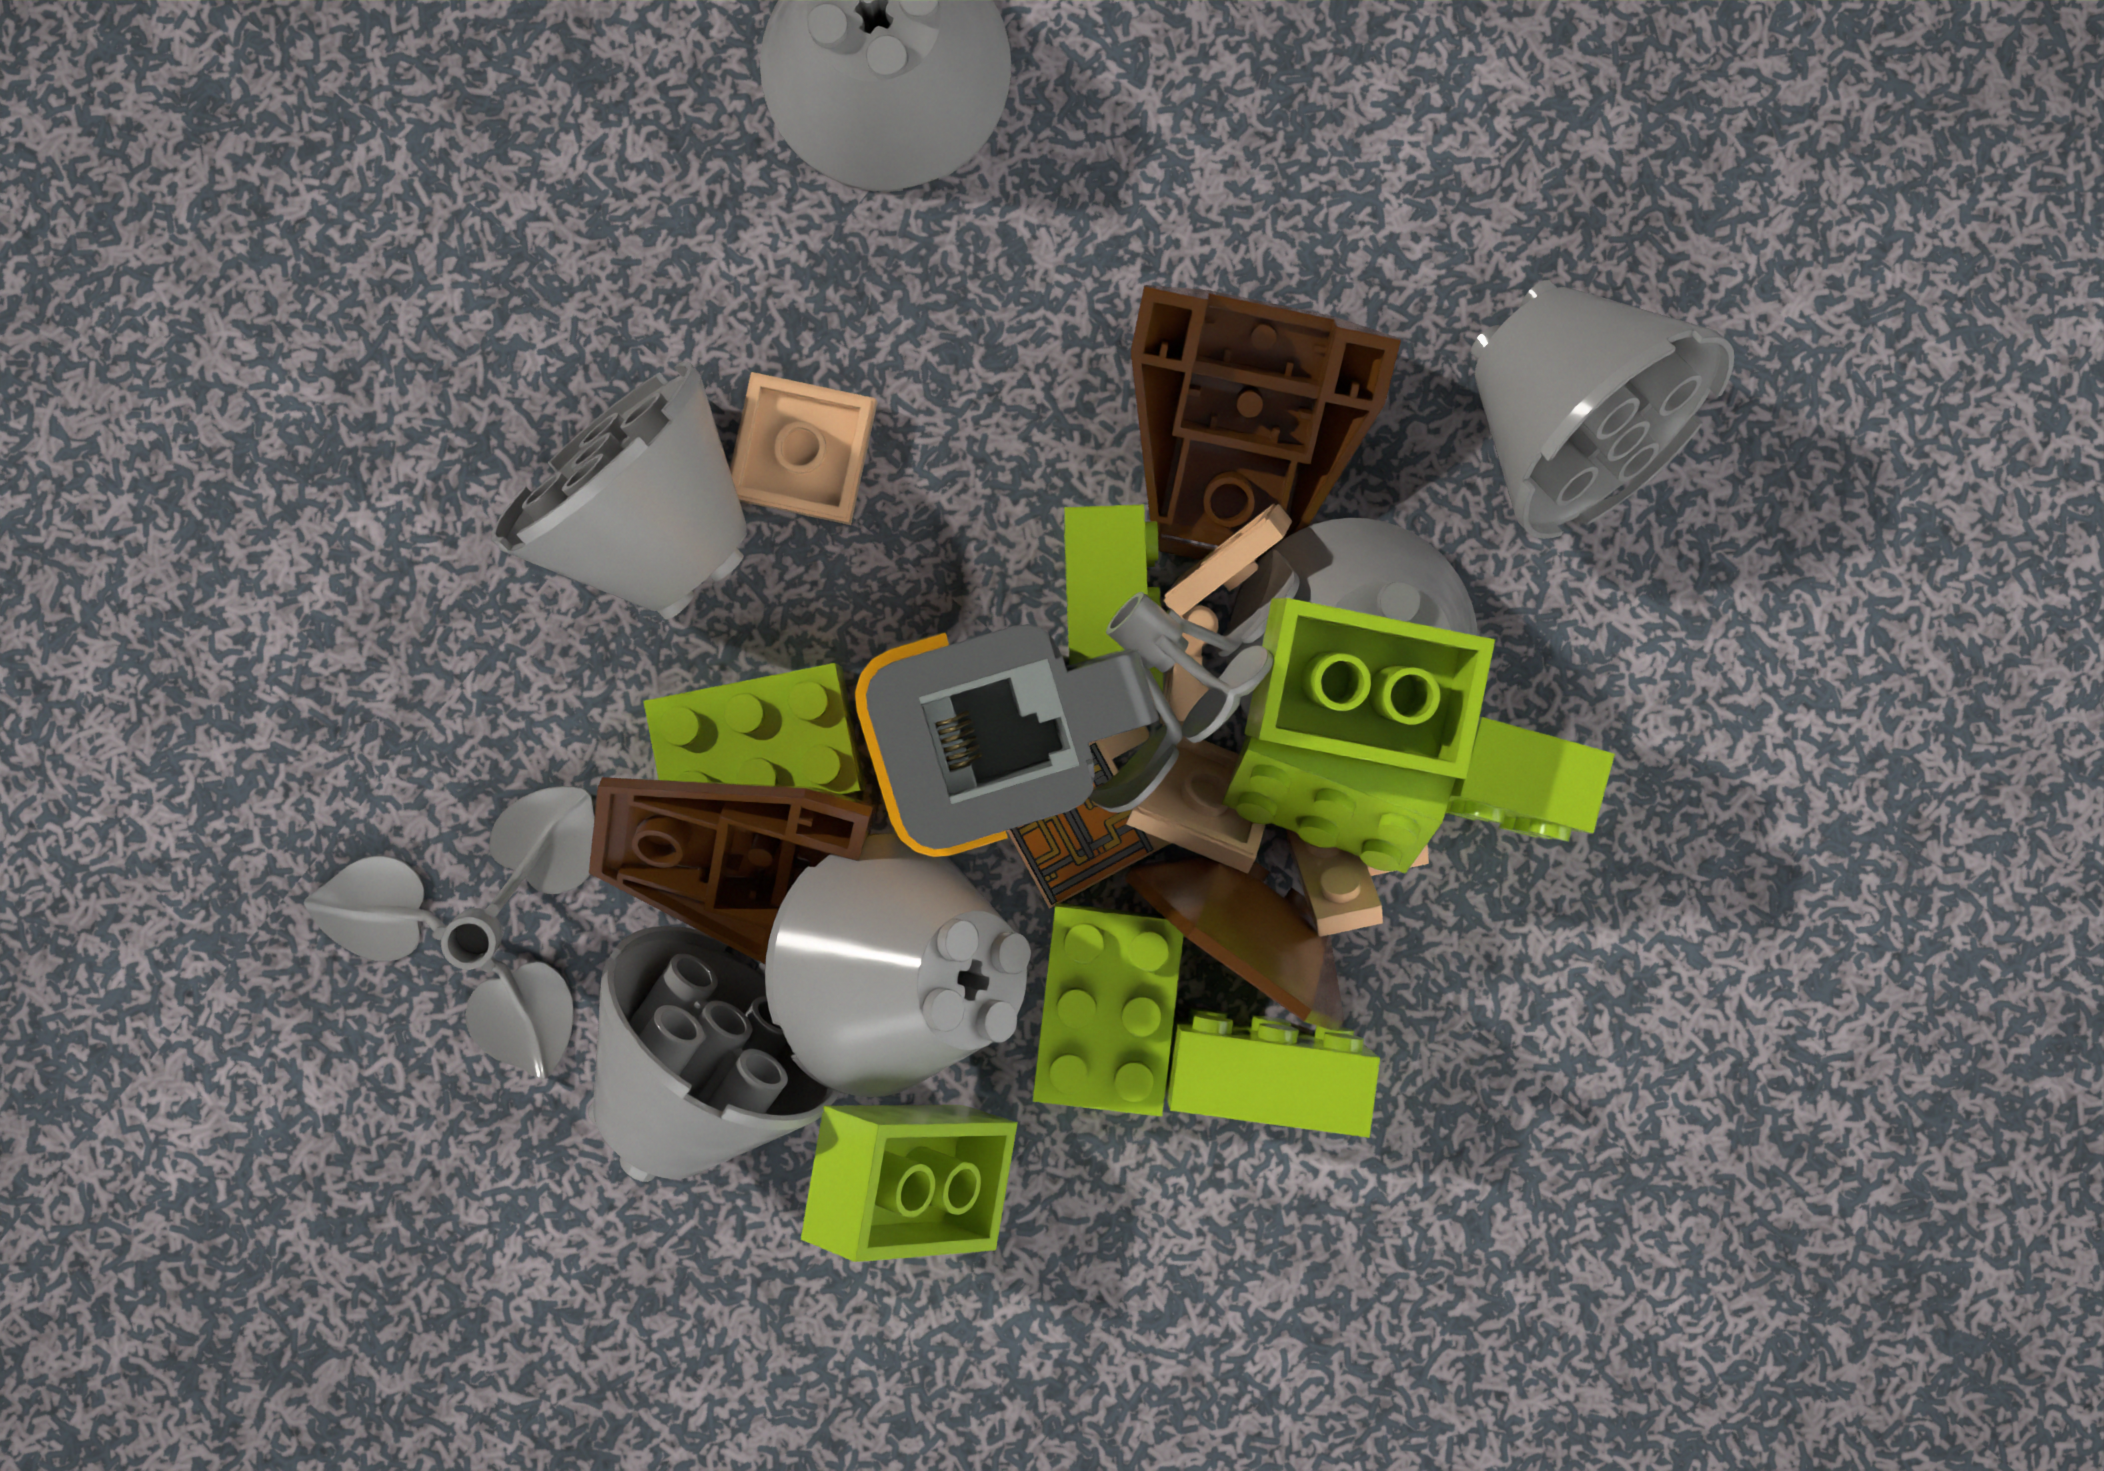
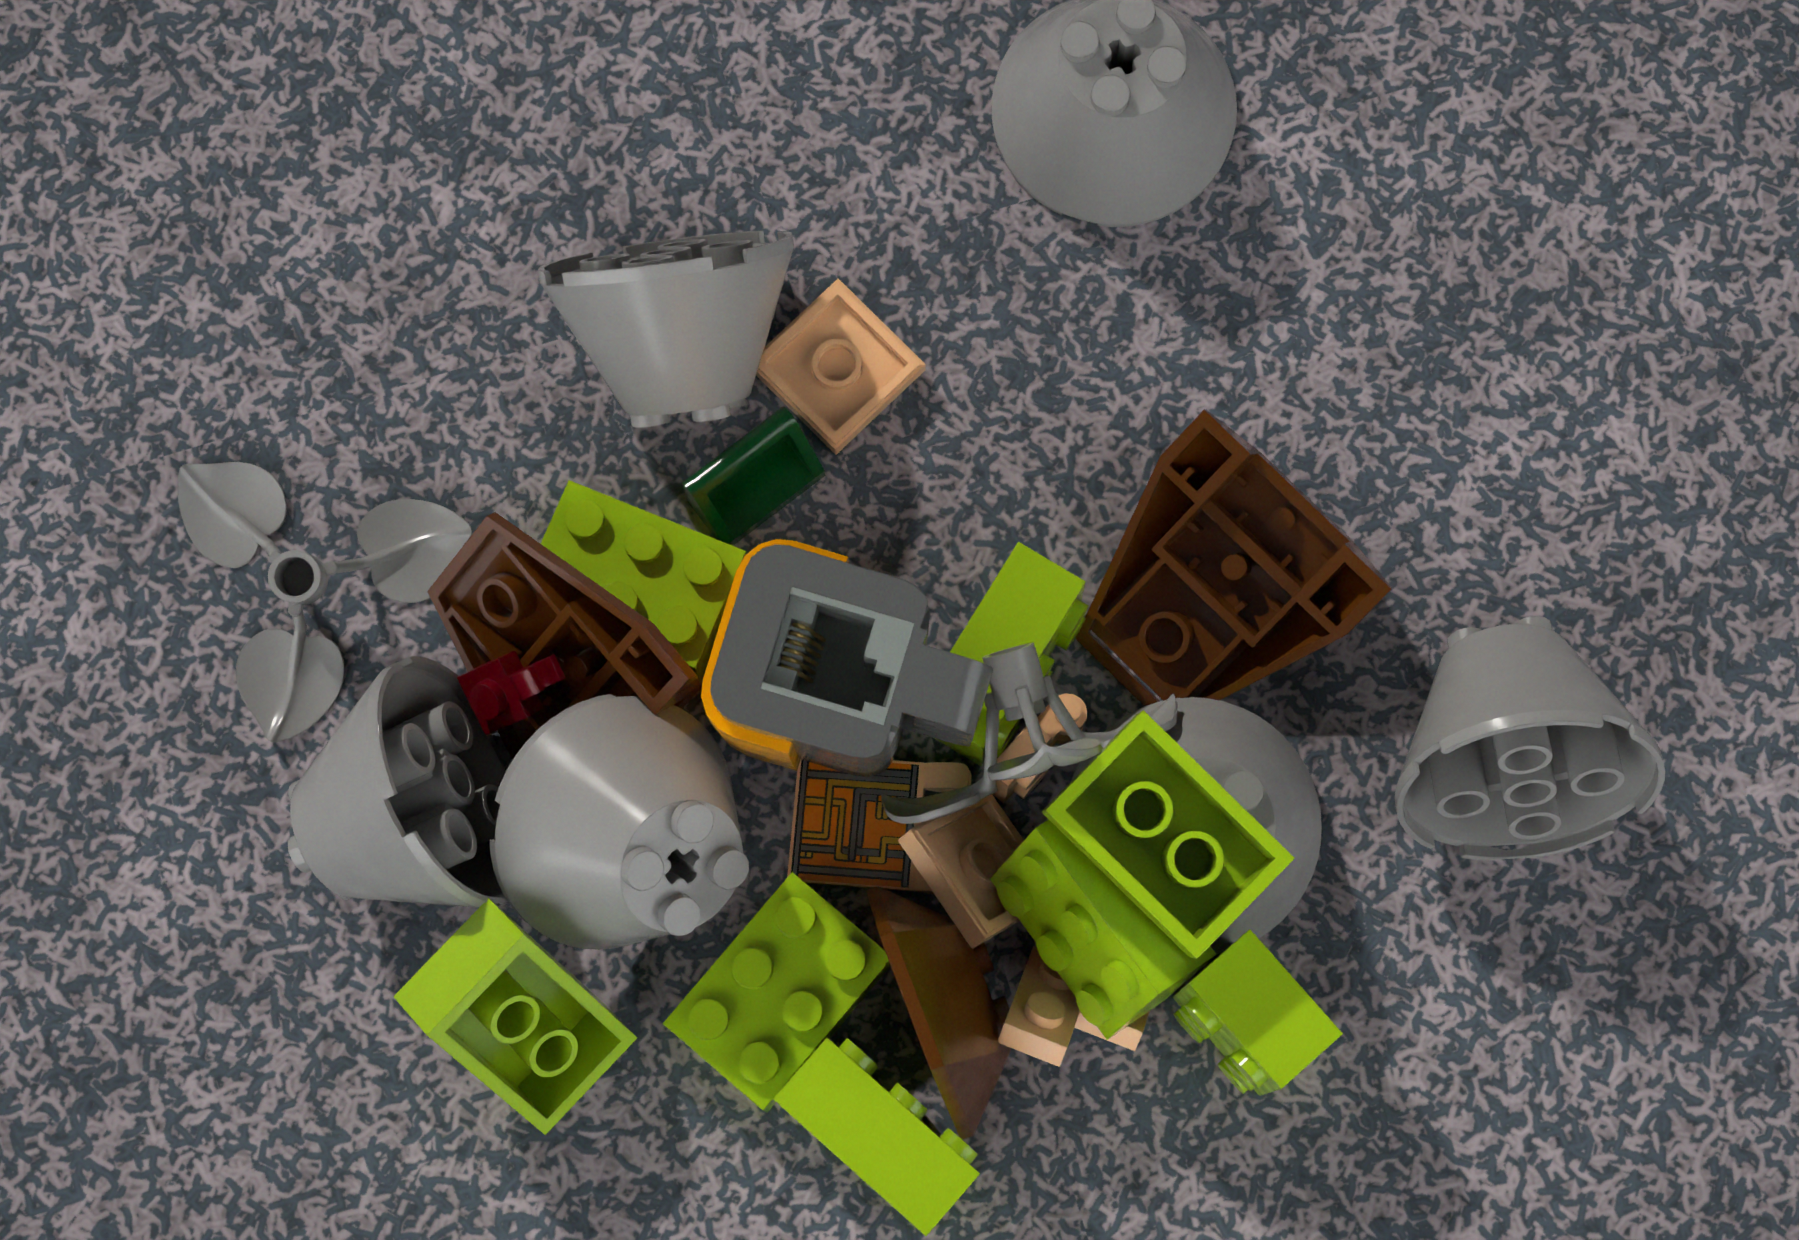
camera: 40 degrees right, 10 degrees down
(714, 915) = (506, 691): none -> dark red plate
(797, 593) = (753, 478): none -> dark green tile
(1229, 562) = (1129, 679): light nougat plate -> none

